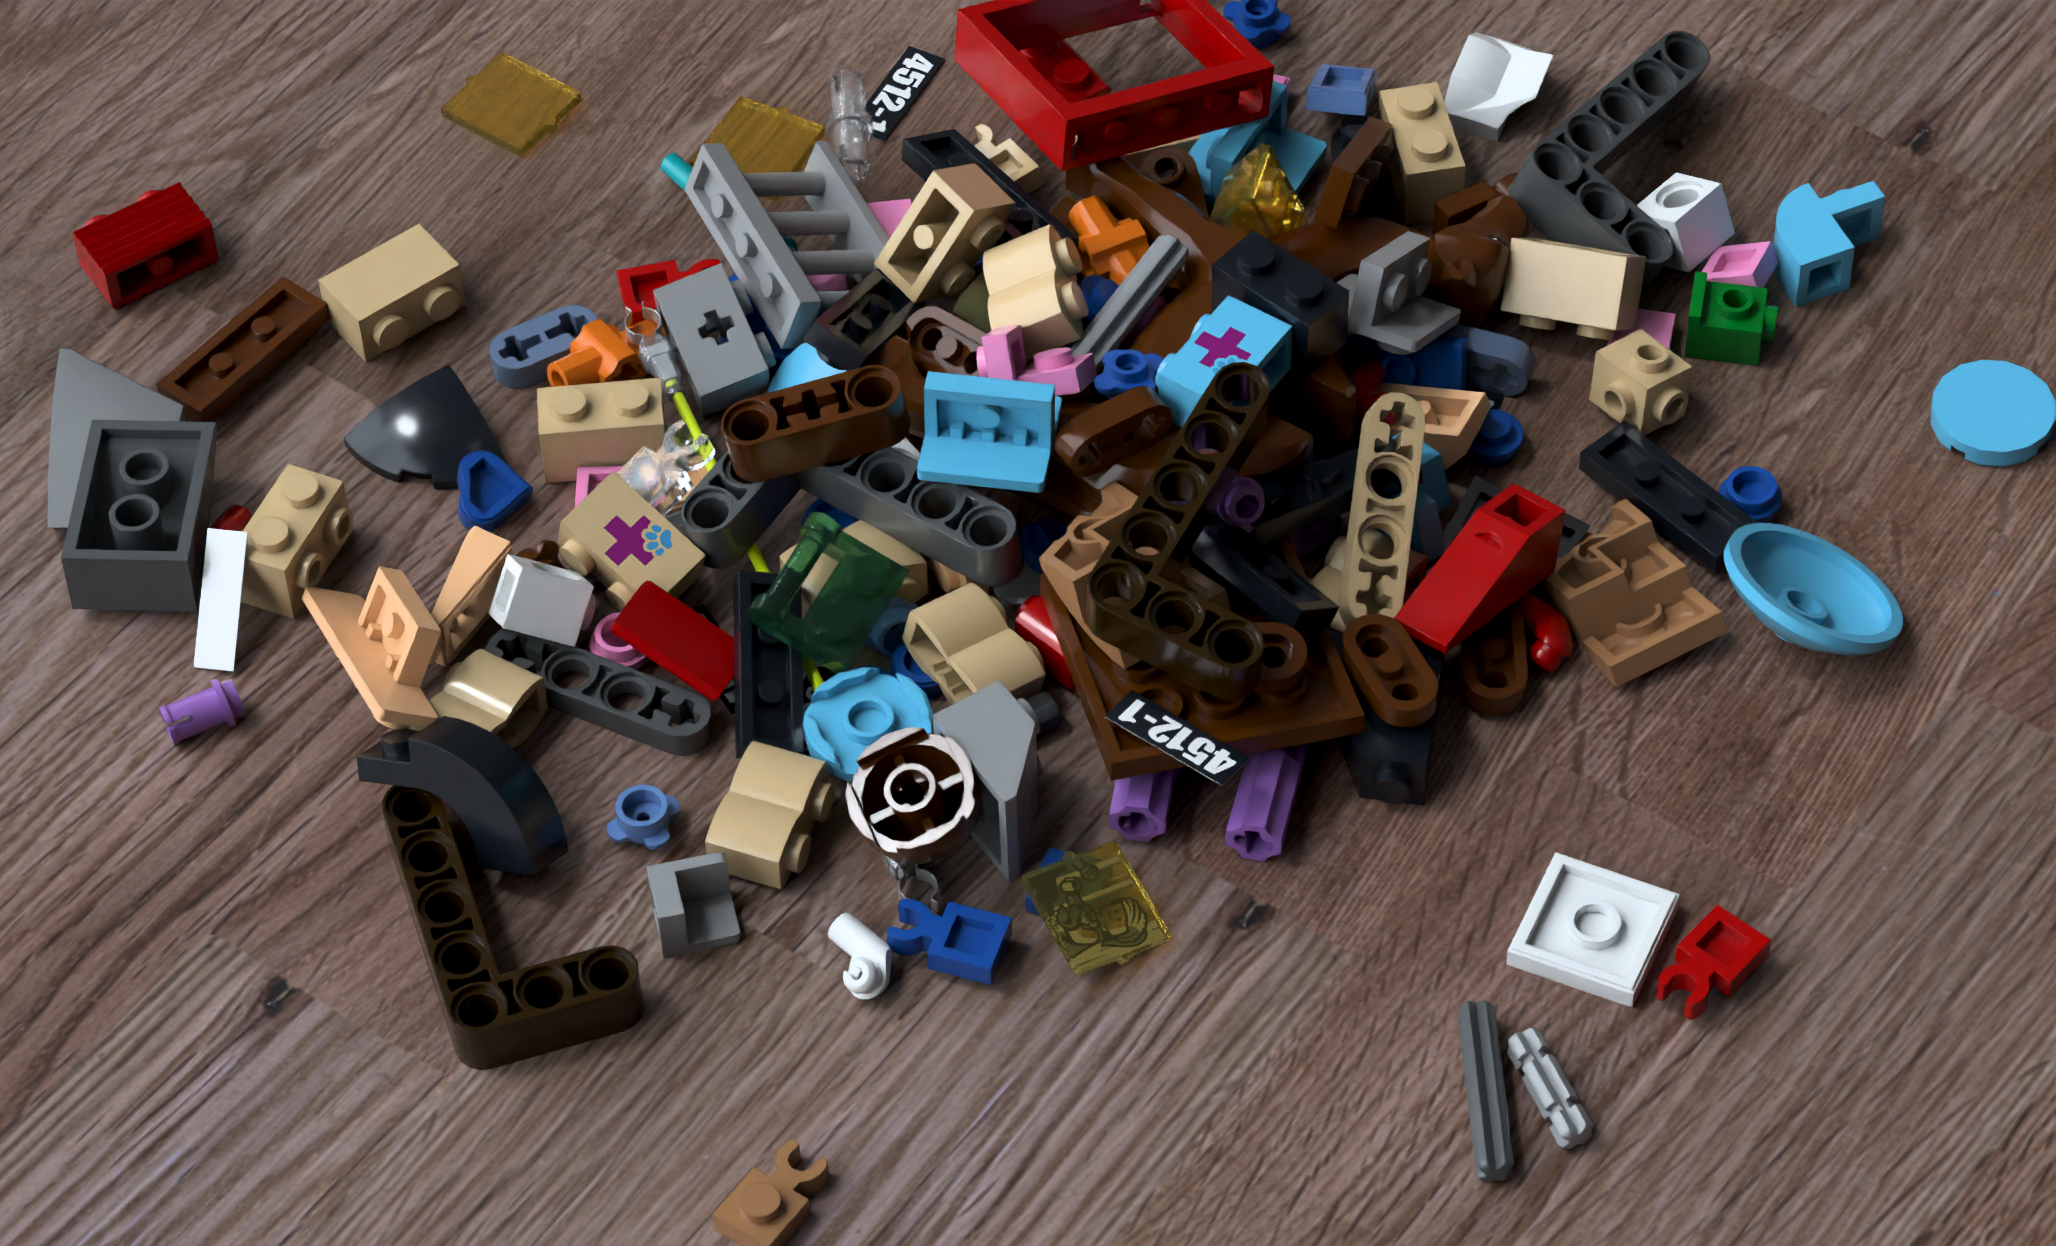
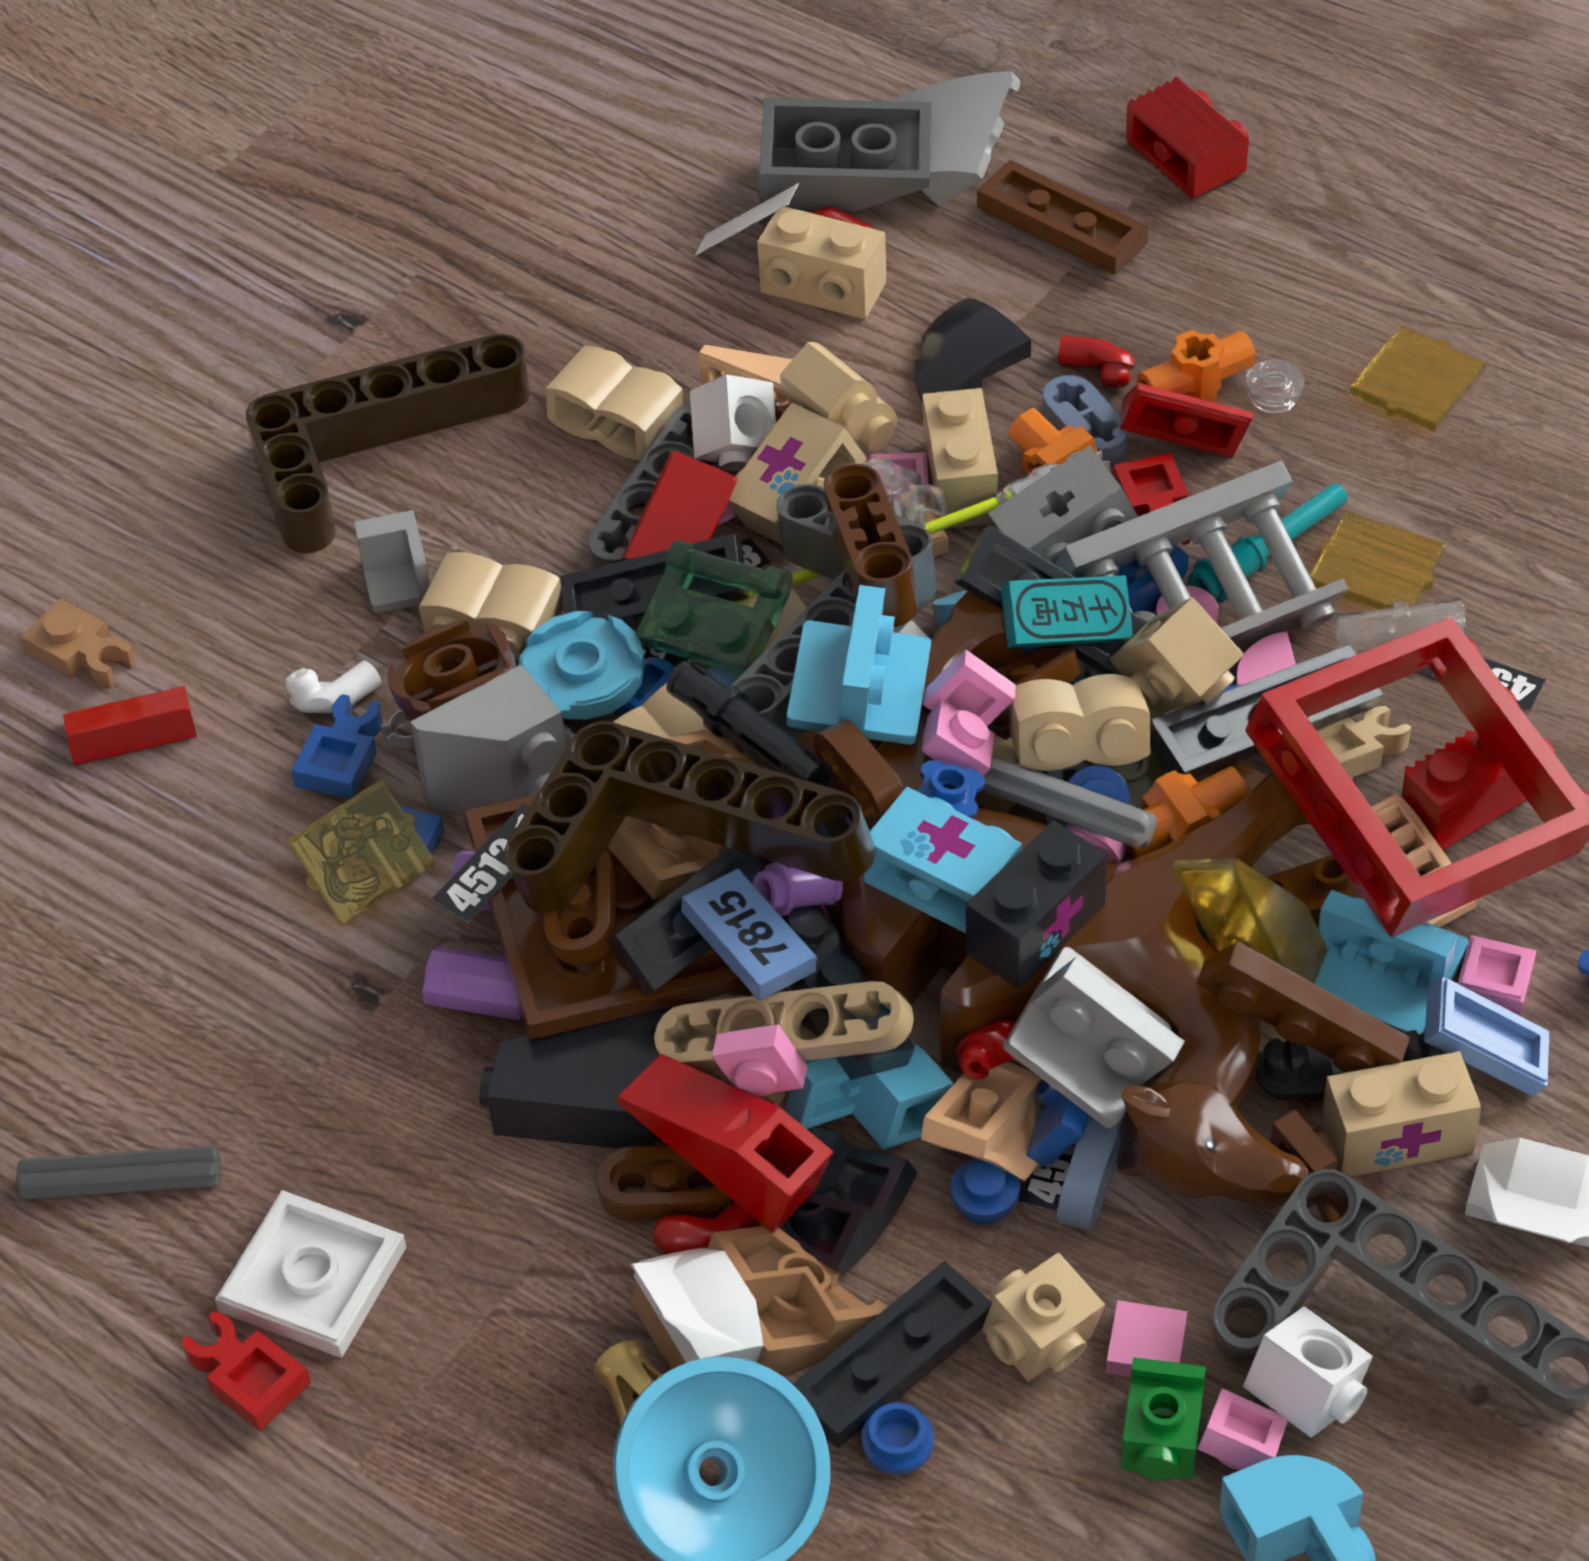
camera: 90 degrees right, 0 degrees up
(206, 710) = (645, 242): medium lavender pin -> none
(382, 645) = (669, 314): light nougat bracket -> none
(393, 292) = (1134, 302): tan brick -> none
(451, 329) = (1098, 353): none -> red arm
(483, 781) = (504, 391): black arch -> none
(489, 491) = (902, 389): blue tile -> none
(495, 251) = (1201, 363): none -> orange axle
(514, 202) = (1274, 385): none -> clear plate
(536, 499) = (839, 394): none -> tan brick
(571, 259) = (1184, 420): none -> red slope
(643, 803) = (506, 527): medium blue plate -> none
(891, 300) = (1066, 611): none -> teal tile
(893, 1138) = (129, 725): none -> red slope
(1026, 533) = (729, 714): none -> black pin
(1299, 515) = (748, 934): none -> medium blue tile
(1392, 676) = (588, 1049): reddish brown plate -> none
(1429, 524) = (760, 1060): none -> bright pink plate
(1550, 1088) = (114, 1226): light grey axle -> none
(1572, 285) = (1182, 1246): tan brick -> none
(1637, 612) = (702, 1304): none -> white slope
(1705, 675) = (625, 1372): none -> pearl gold piece

